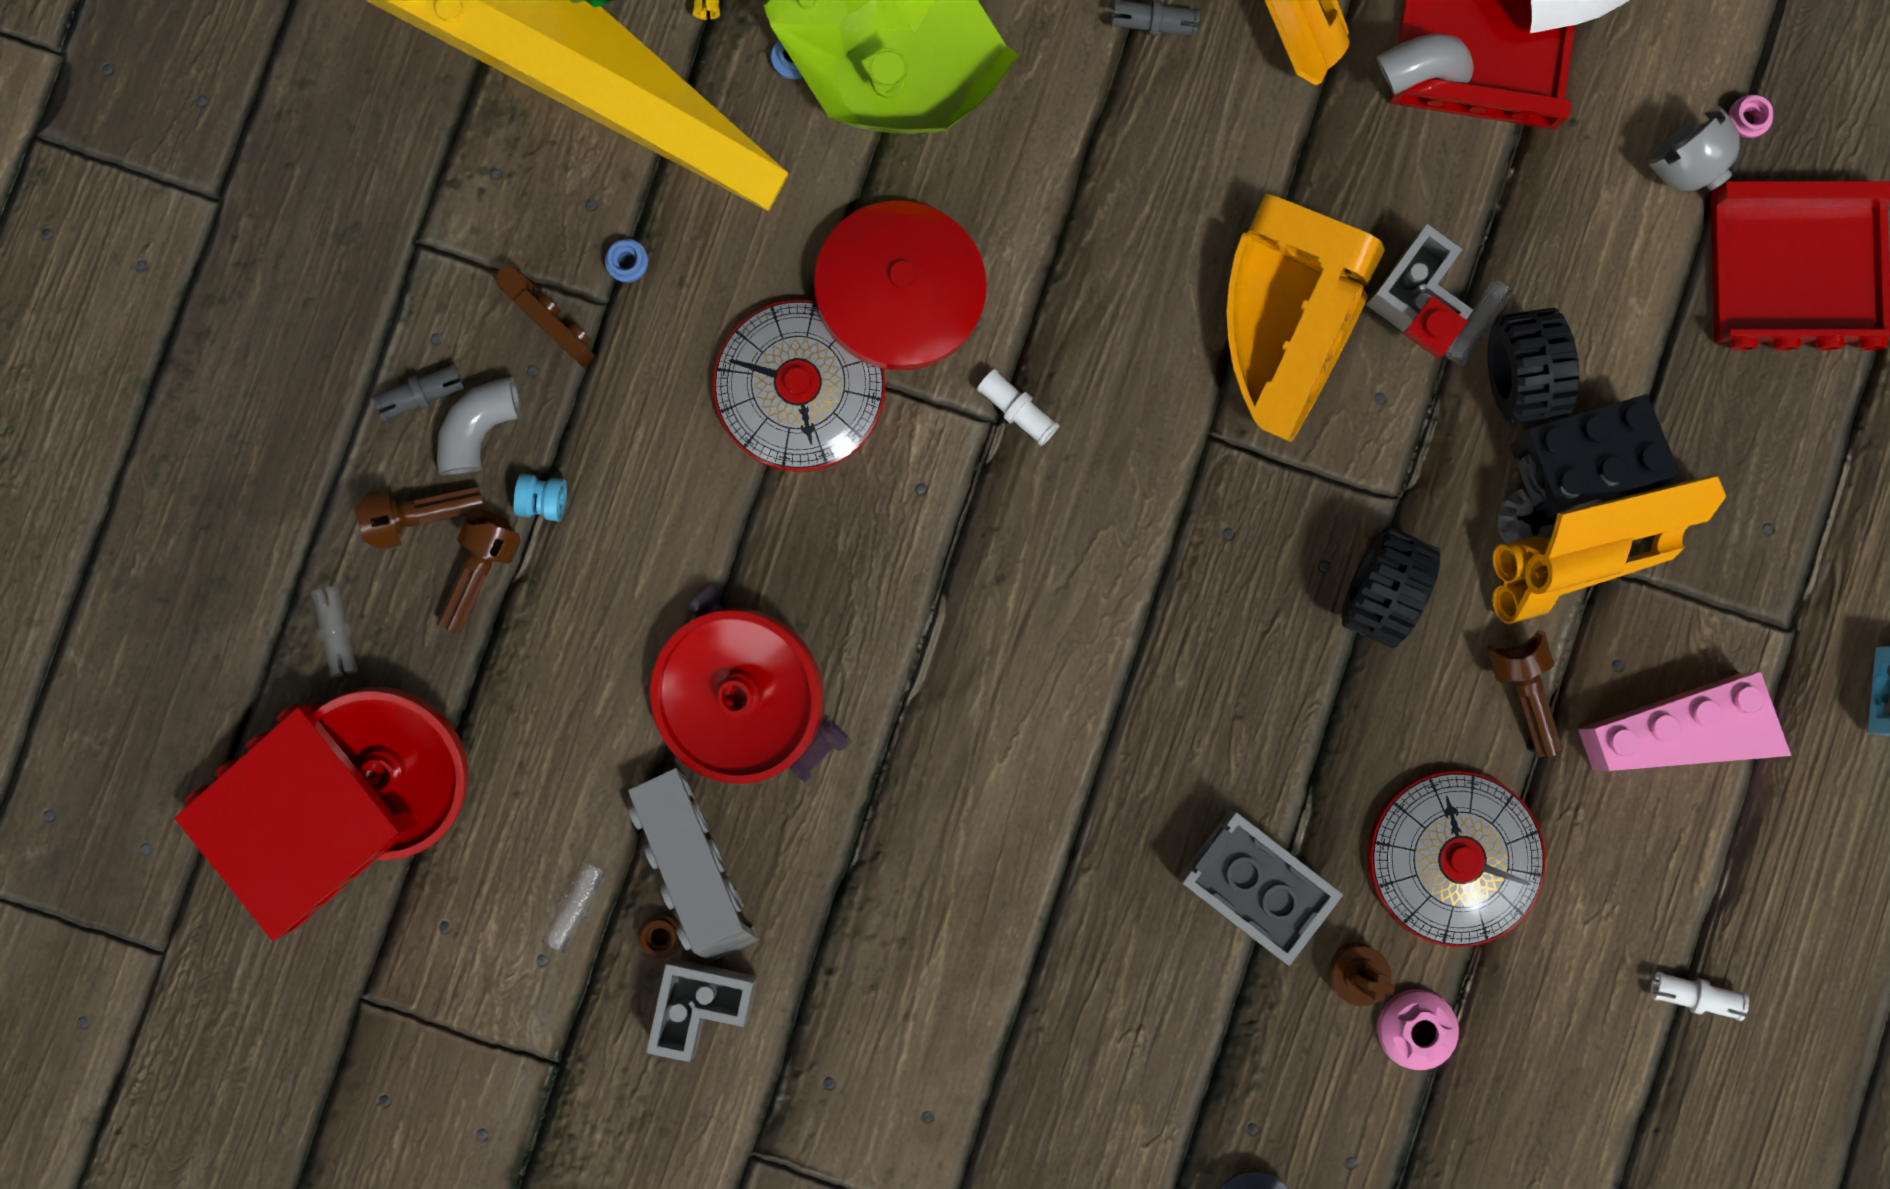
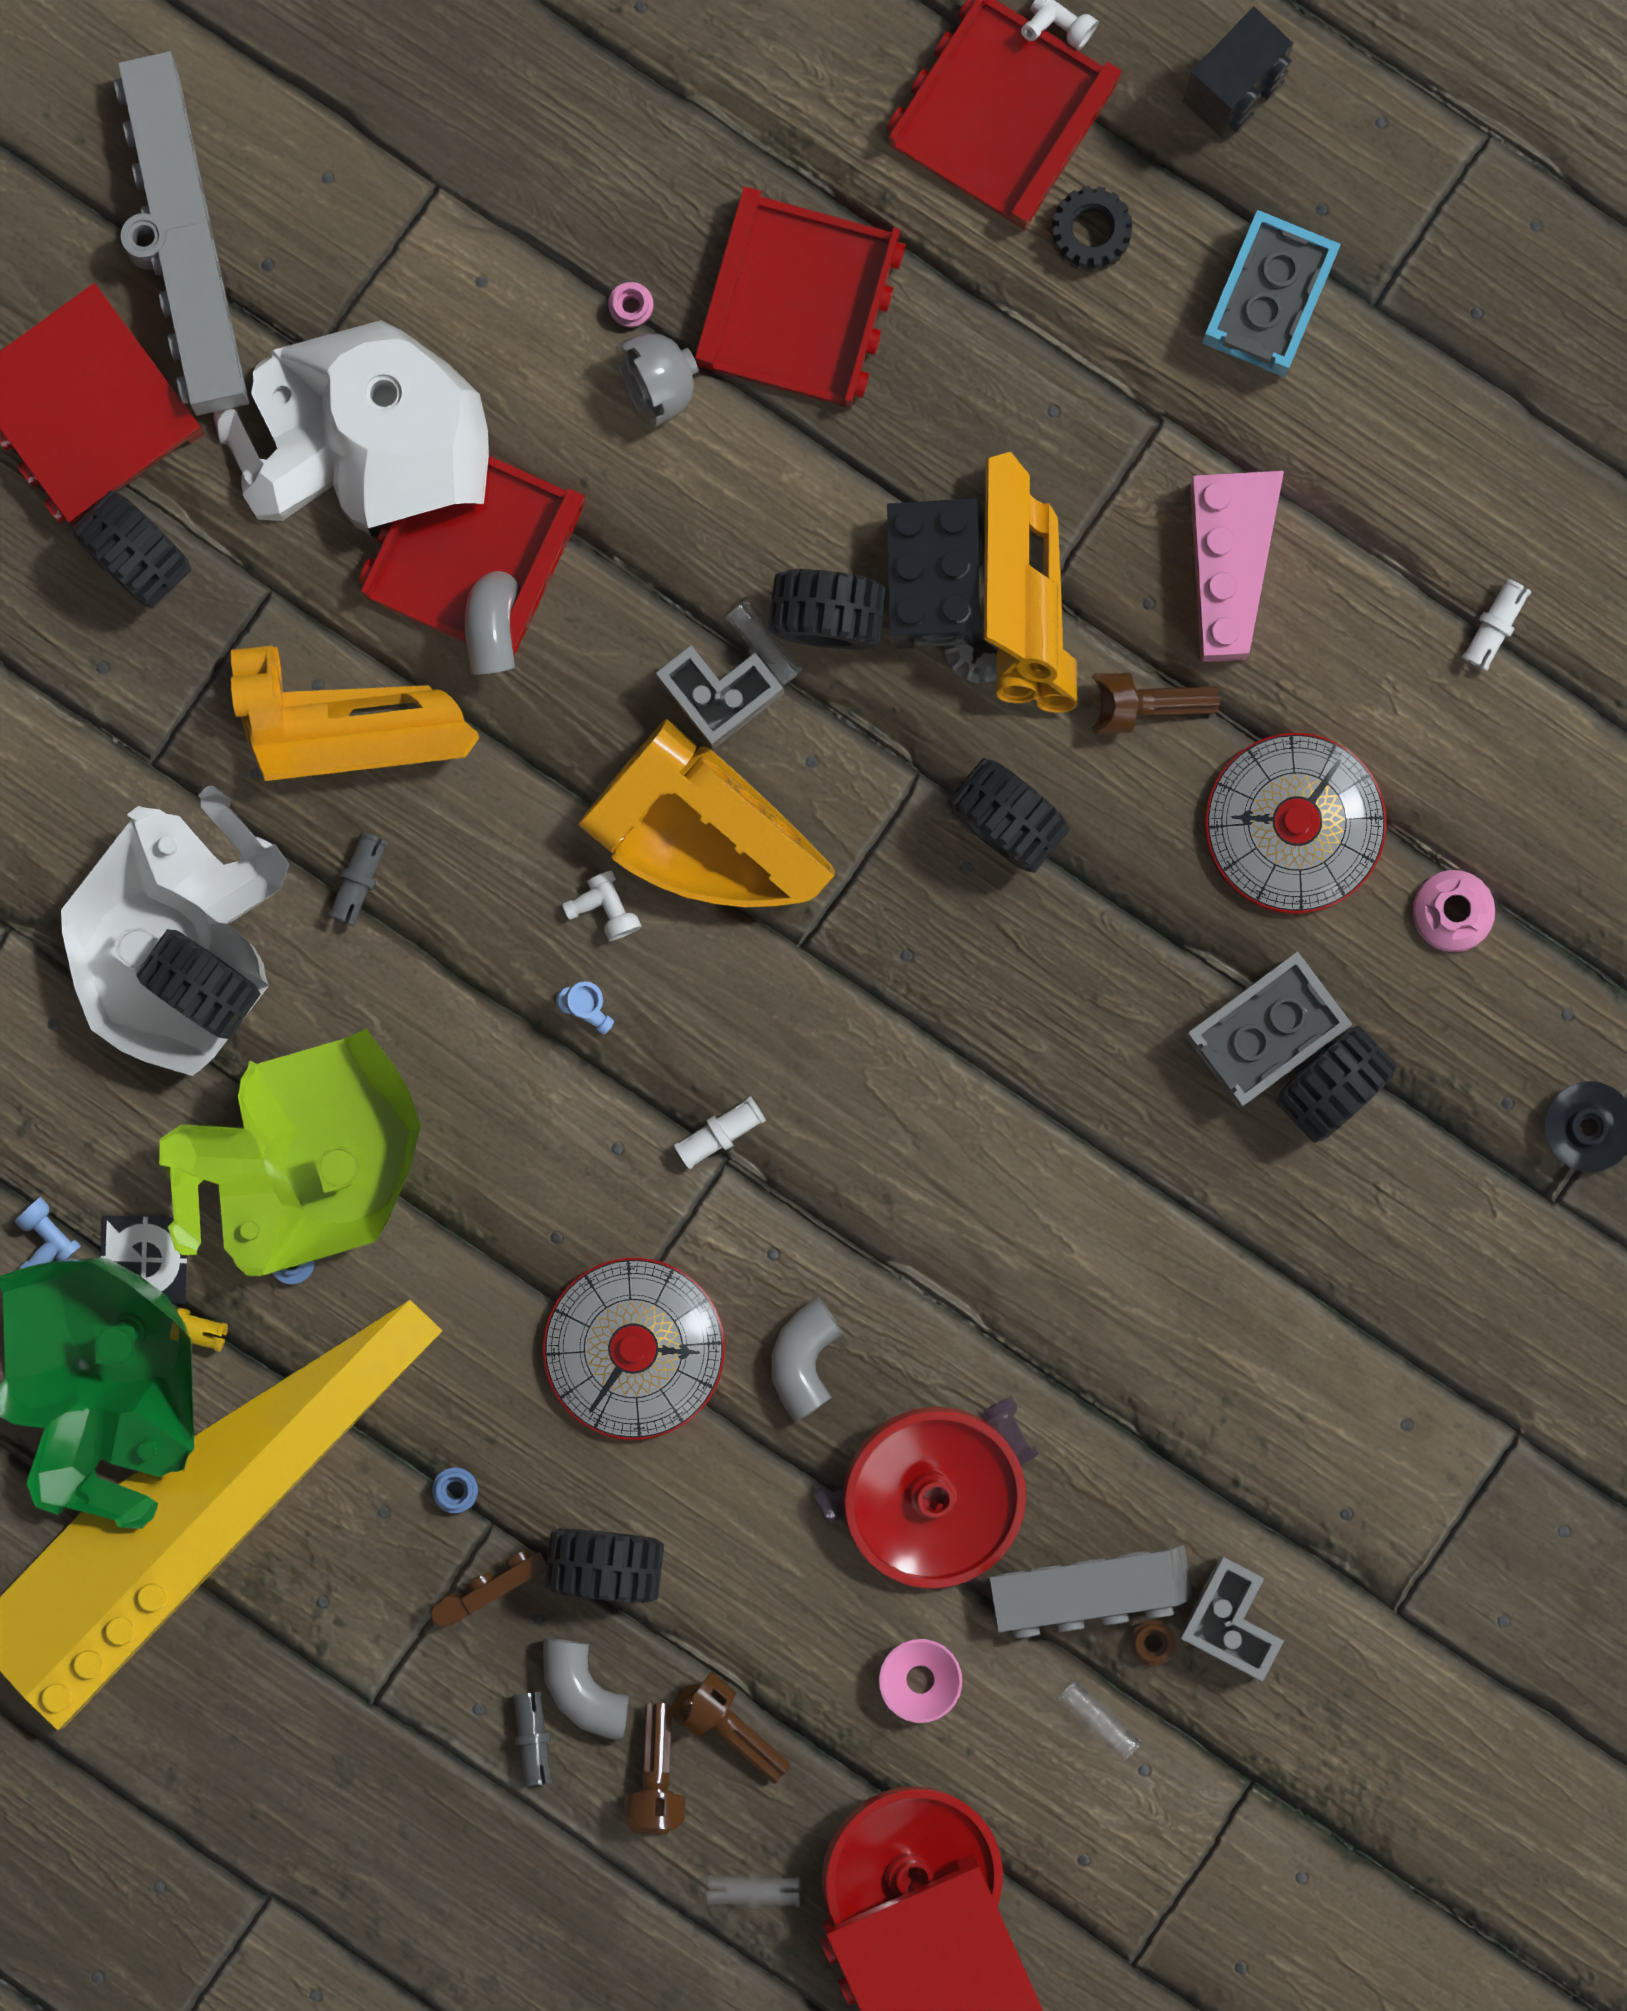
camera: 70 degrees left, 0 degrees up
(540, 497) = (680, 1633): medium azure wheel -> none
(543, 737) = (926, 1705): none -> bright pink piece
(588, 408) = (604, 1565): none -> black tyre
(832, 533) = (796, 1356): none -> light grey cylinder
(899, 285) = (561, 1217): red dish -> none
(1103, 246) = (584, 1002): none -> light blue piece
(1206, 241) = (604, 893): none -> white piece
(1228, 966) = (1336, 1084): none -> black tyre
(1360, 975) = (1383, 954): reddish brown piece -> none
(1435, 327) = (763, 697): red plate -> none

